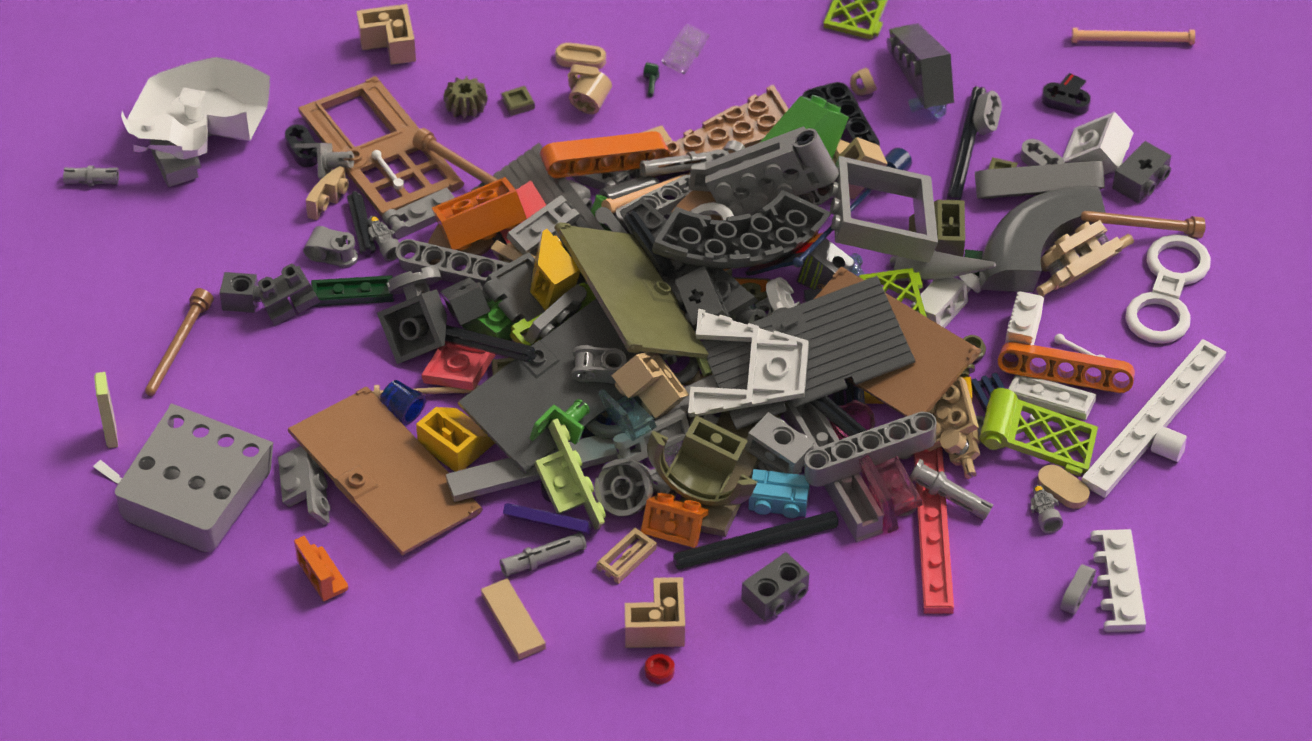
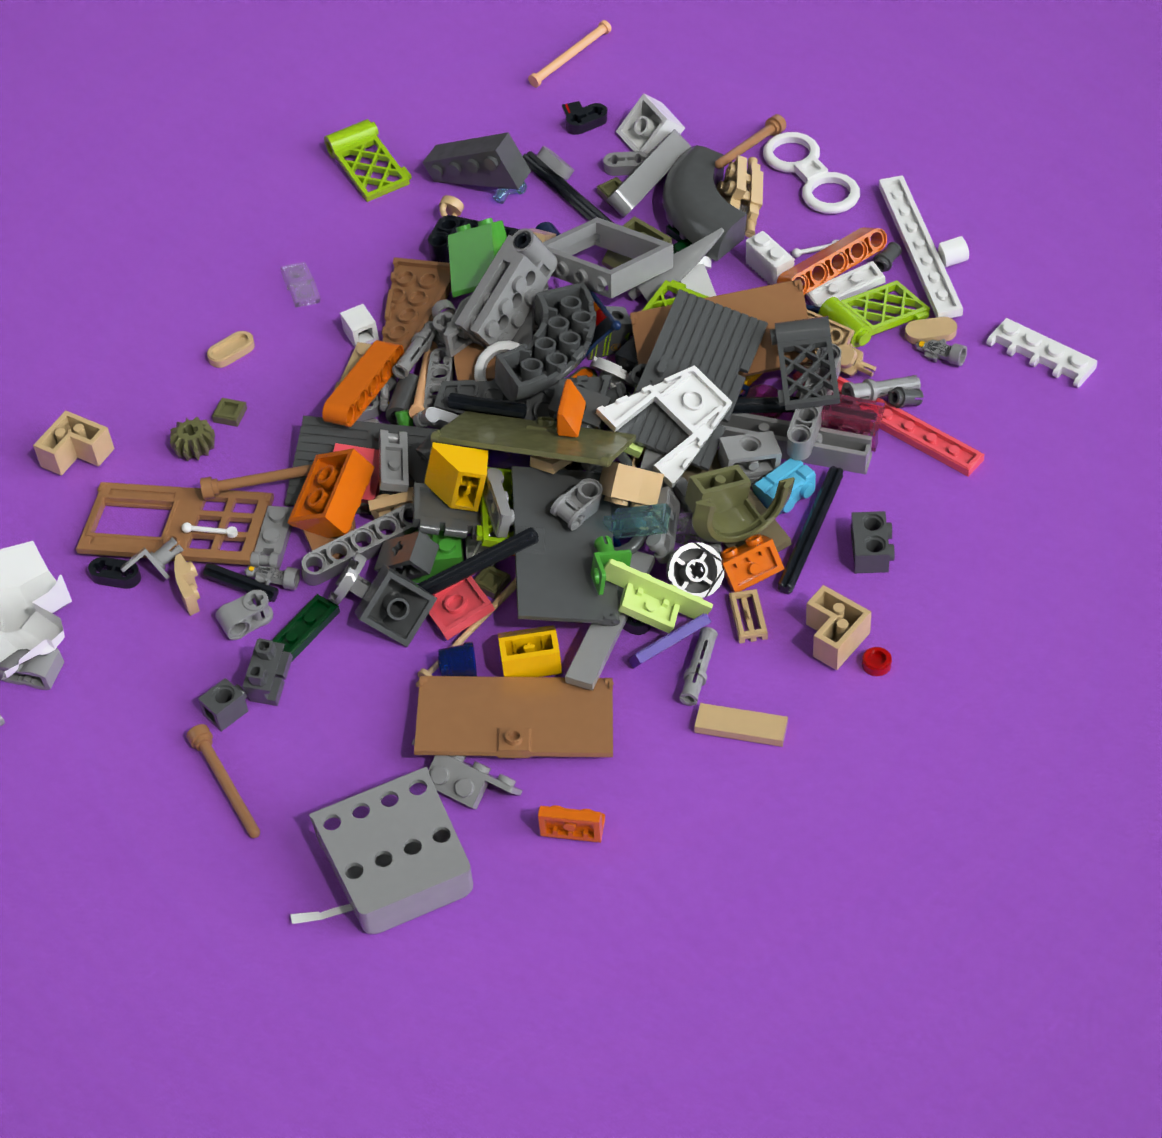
camera: 45 degrees left, 0 degrees up
(106, 409) = (263, 866): tile -> none
(589, 89) = (278, 359): tan piece -> none
(651, 72) = (298, 316): dark green hand -> none
(674, 292) = (570, 411): none -> orange slope
(677, 114) = (359, 325): none -> white brick
(912, 386) = (803, 338): none -> dark grey piece
(960, 513) = (899, 397): none -> dark grey pin
(1078, 589) = (1033, 376): light grey beam -> none
(1114, 403) = (887, 256): none -> dark grey pin
(1142, 172) = (699, 120): dark grey brick -> none

